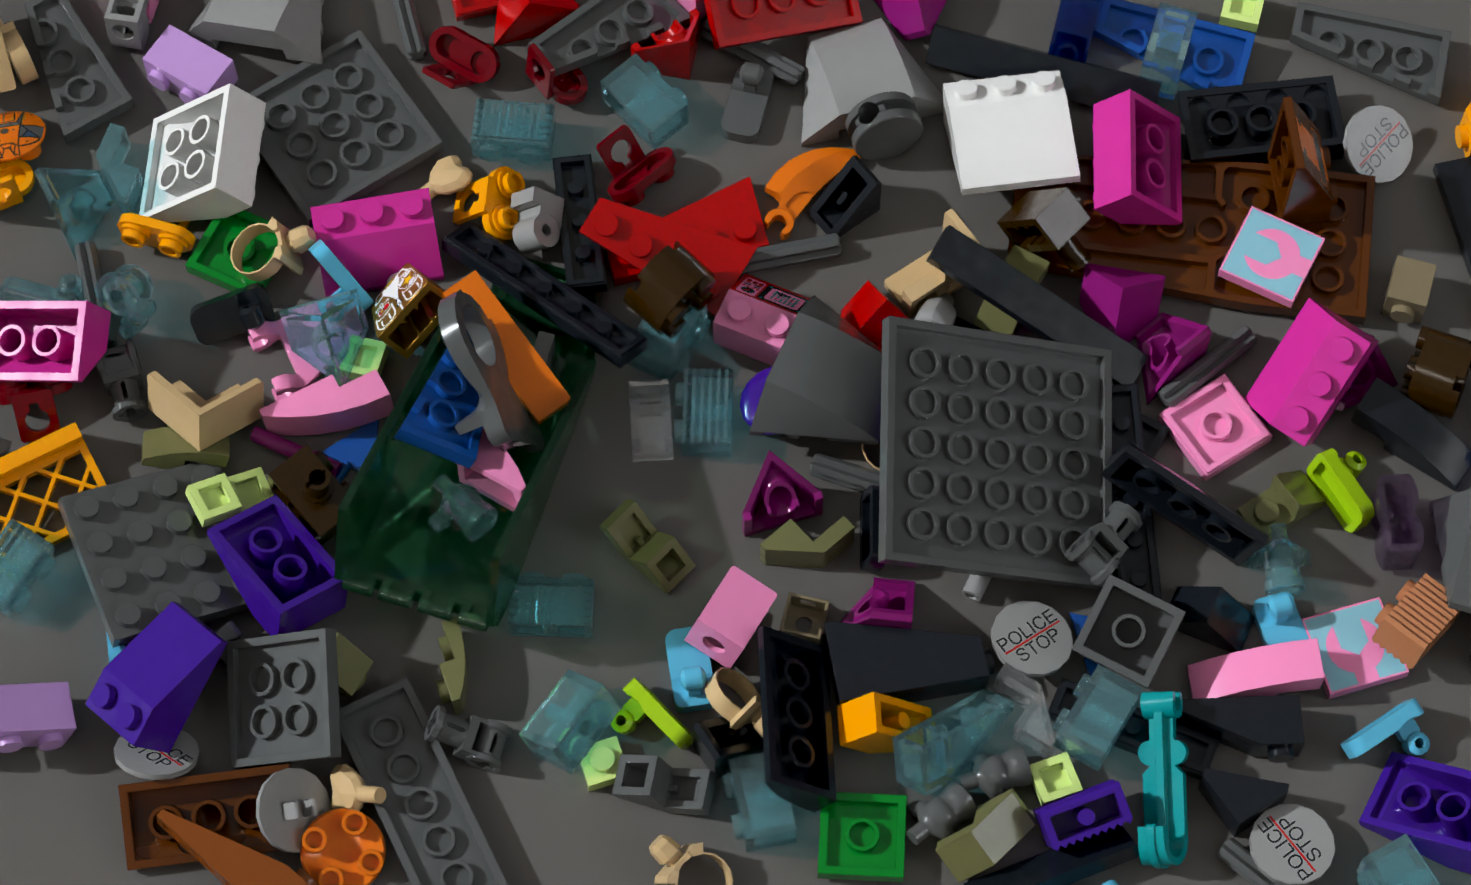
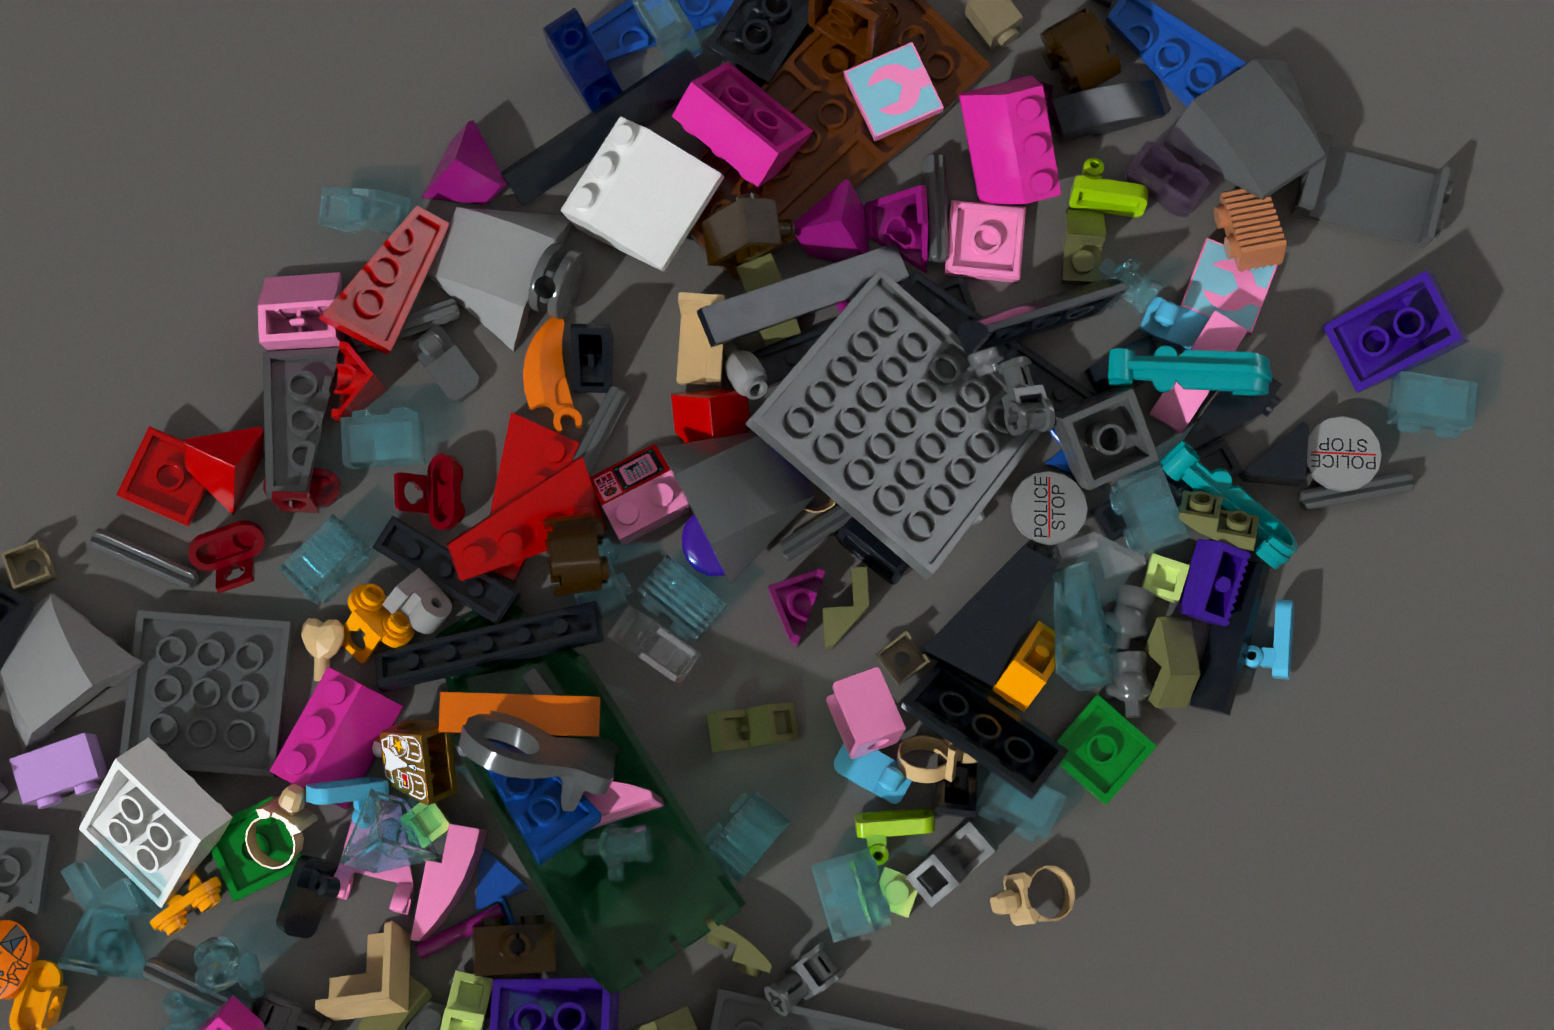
camera: 50 degrees left, 15 degrees up
(885, 604) = (939, 598): magenta slope -> none
(1107, 488) = (985, 361): none -> clear plate
(1134, 764) = (1204, 514): none -> olive slope
(1247, 652) = (1193, 370): none -> teal piece
(1395, 721) = (1306, 314): medium azure piece -> none

